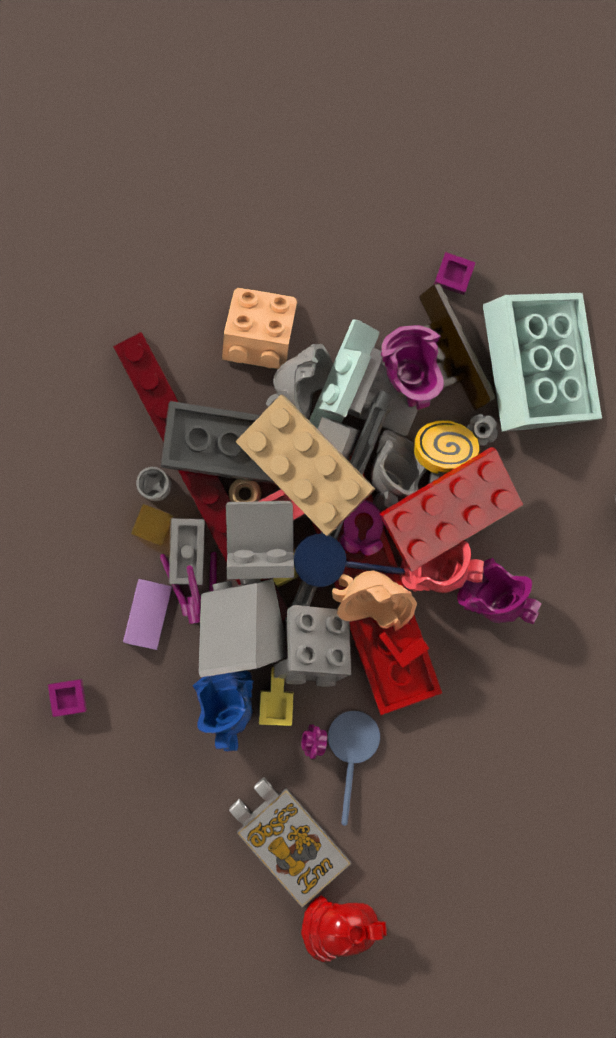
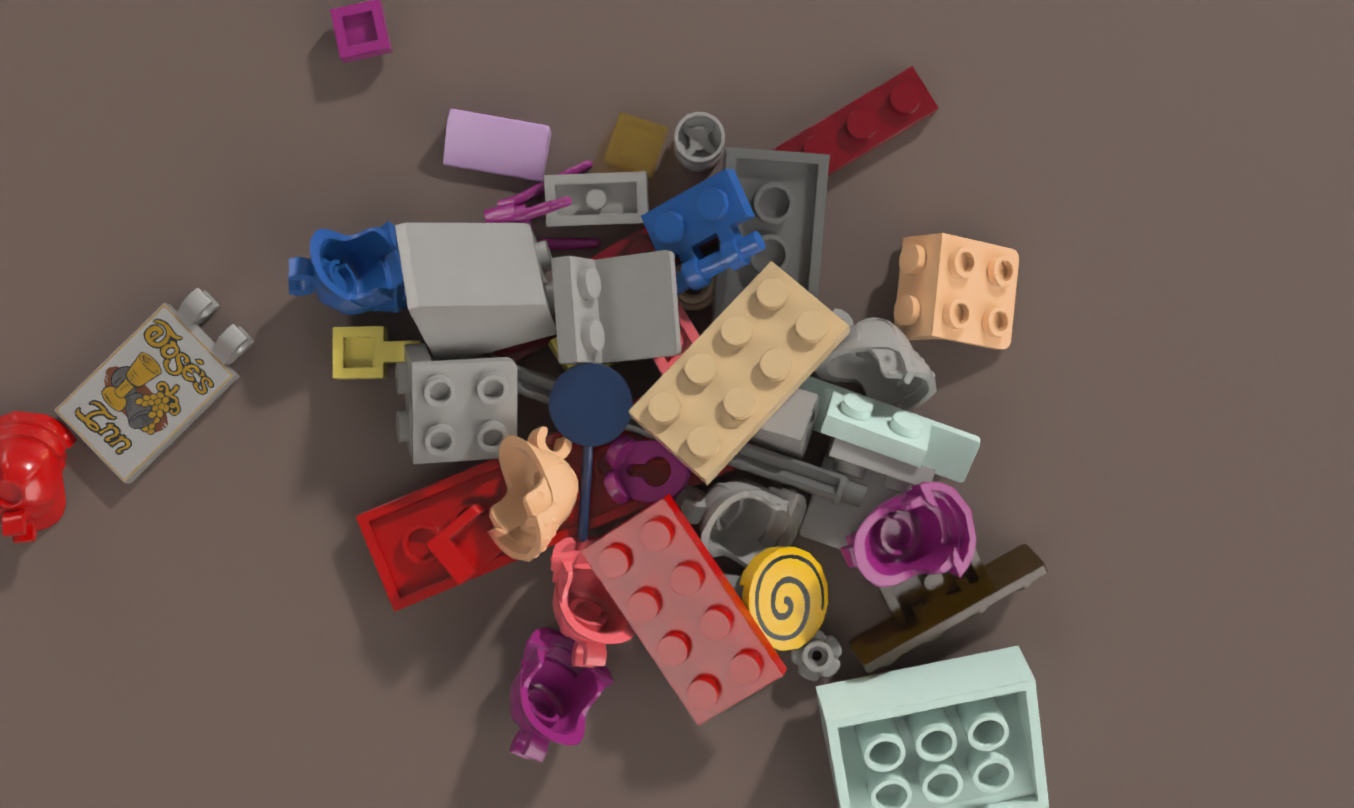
camera: 90 degrees right, 0 degrees up
(204, 485) = (697, 217): none -> blue plate
(314, 741) = (309, 414): magenta plate -> none
(354, 740) = (317, 476): sand blue piece -> none
(454, 273) = (1066, 598): magenta plate -> none

